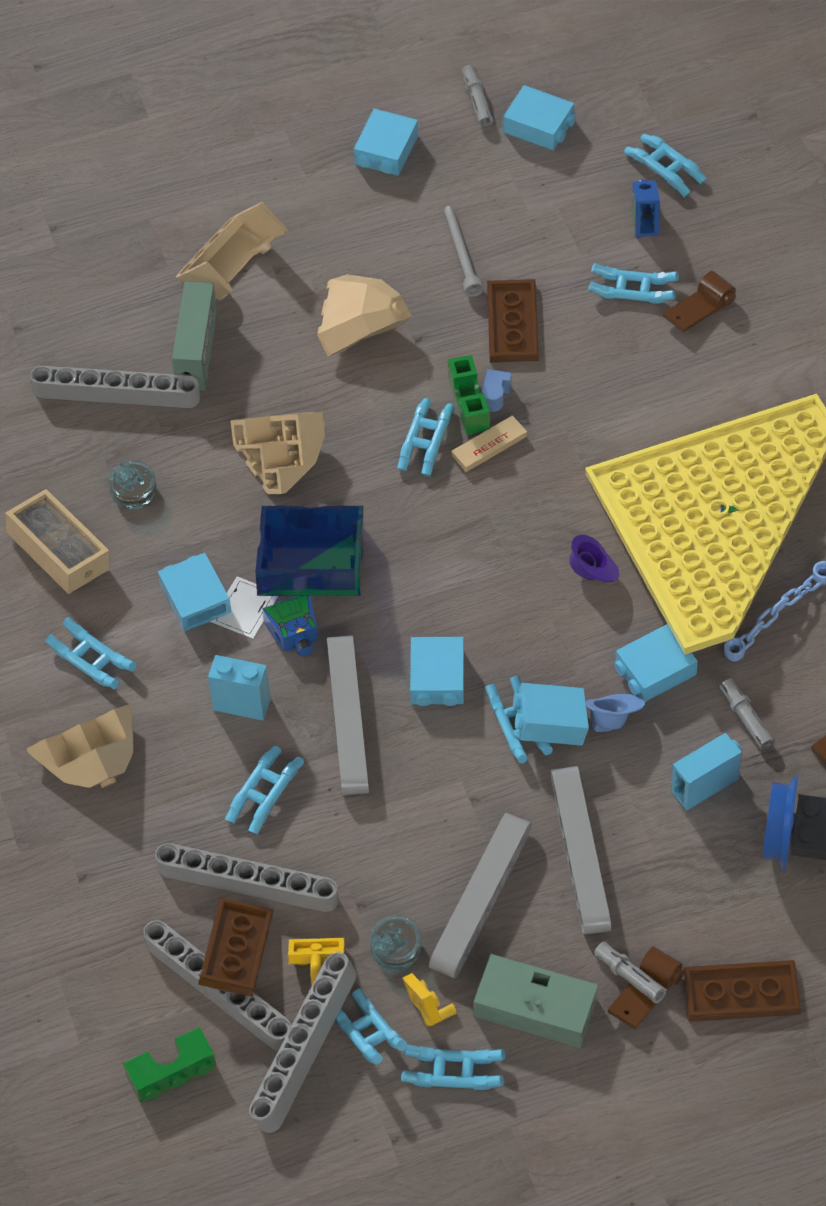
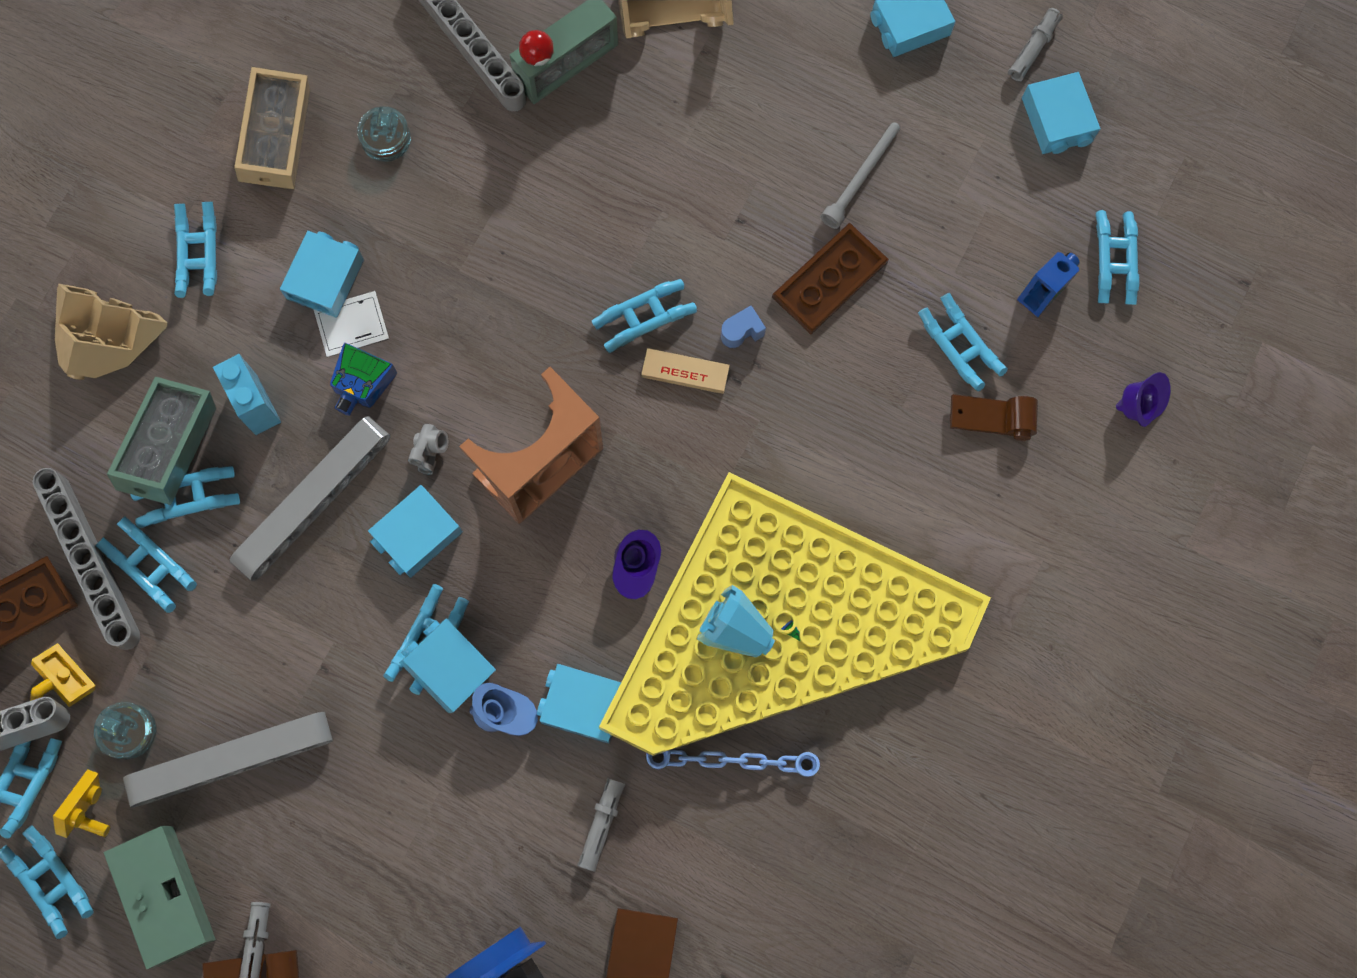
camera: 40 degrees right, 20 degrees up
(189, 335) = (536, 48): none -> red piece
(216, 762) = (162, 440): none -> brick
(280, 447) = (525, 214): tan brick -> none
(302, 836) = (146, 547): none -> medium azure piece
(310, 551) = (433, 329): clear blue tile -> none
(357, 310) = (711, 150): tan brick -> none
(383, 620) = (426, 446): none -> light grey plate
(469, 400) = (719, 304): green arch -> none
(469, 543) = (532, 475): none -> nougat piece
(580, 850) = (340, 803): light grey beam -> none
(695, 524) = (736, 626): none -> medium azure cone
(706, 771) = (501, 847): medium azure brick -> none
(773, 219) = (1145, 399): none -> dark purple piece

